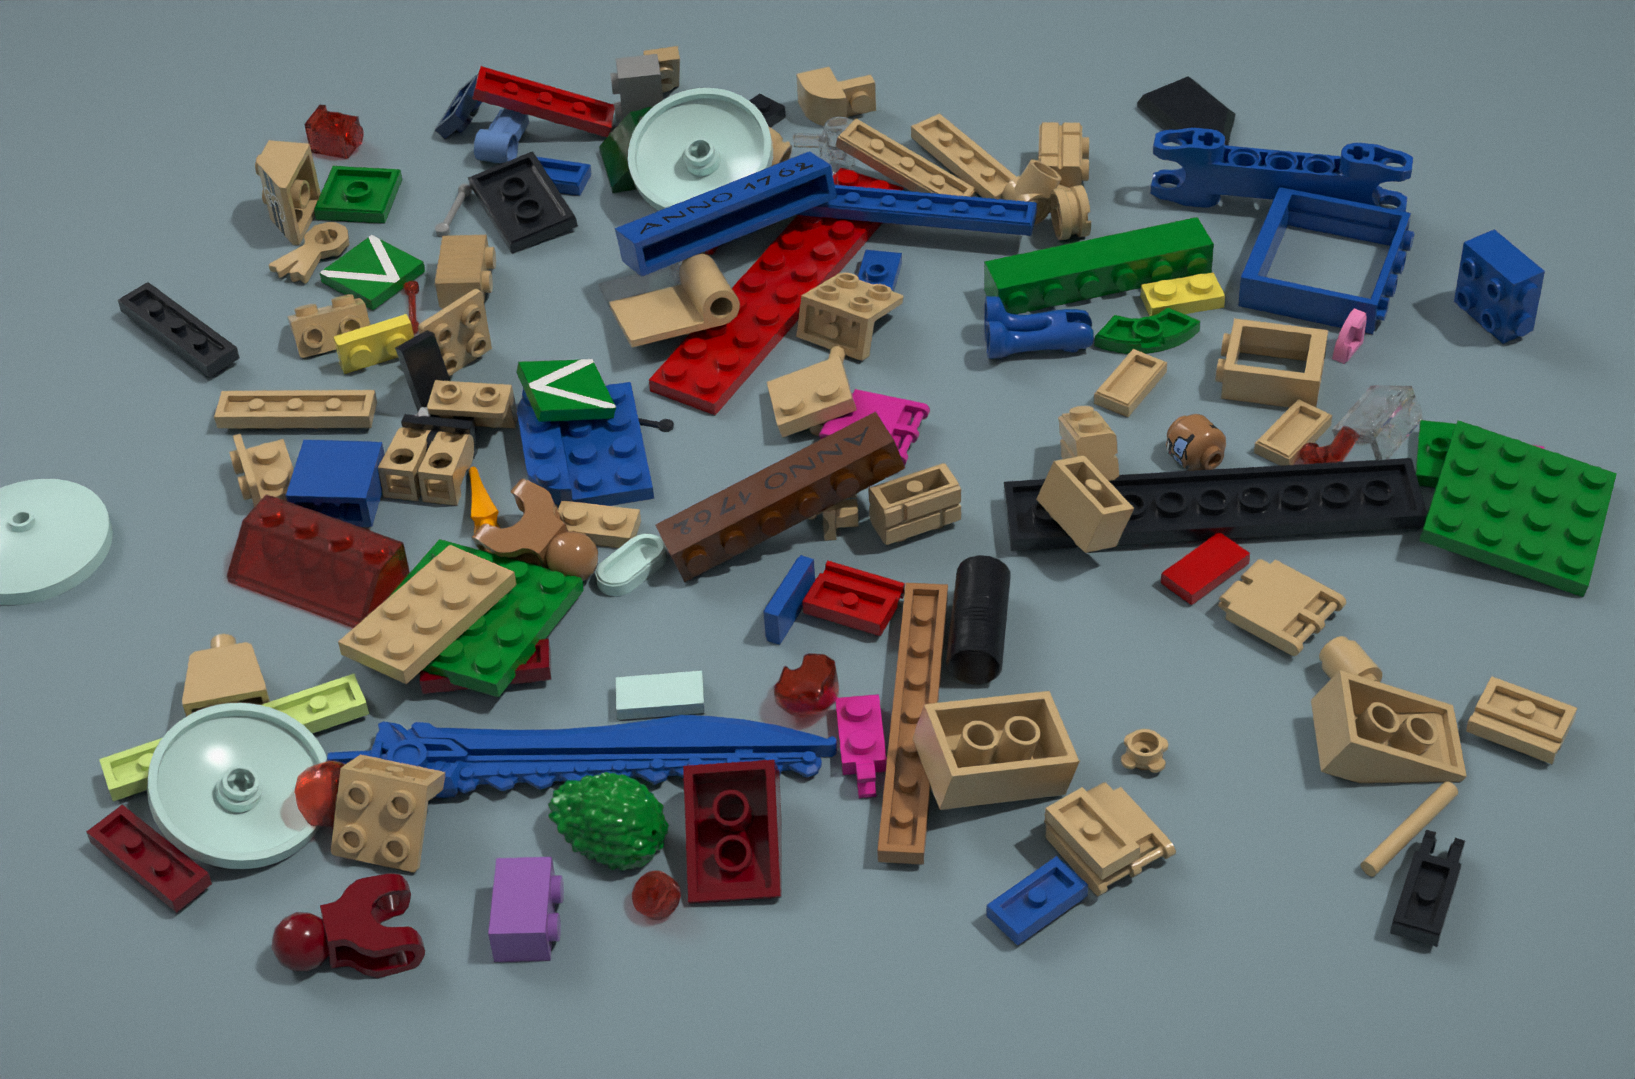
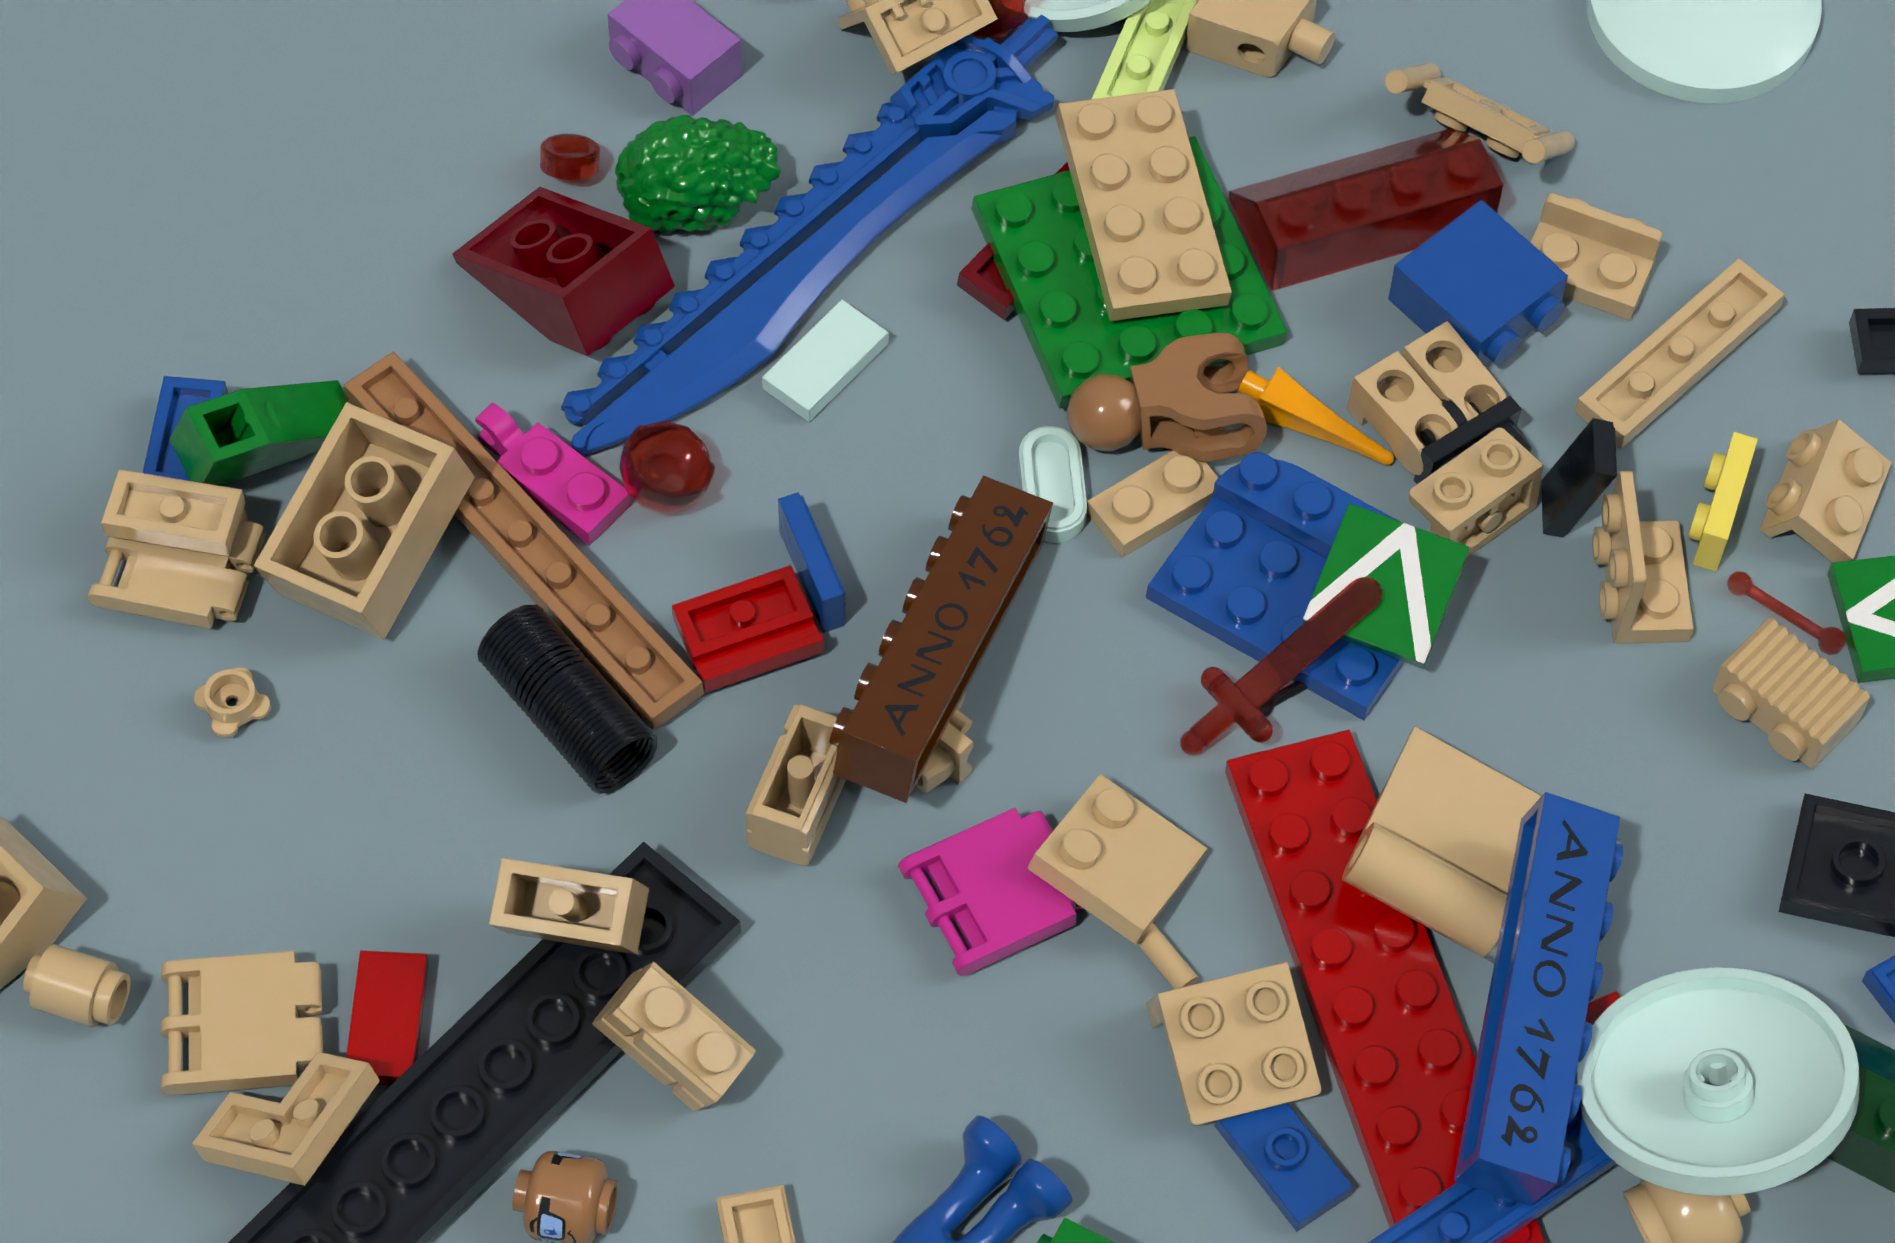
camera: 130 degrees right, 15 degrees up
(207, 546) = (1463, 107): none -> tan plate
(679, 415) = (1241, 700): none -> clear red sword
(1008, 838) = (255, 429): none -> green slope
(1302, 528) = (289, 1136): none -> tan plate

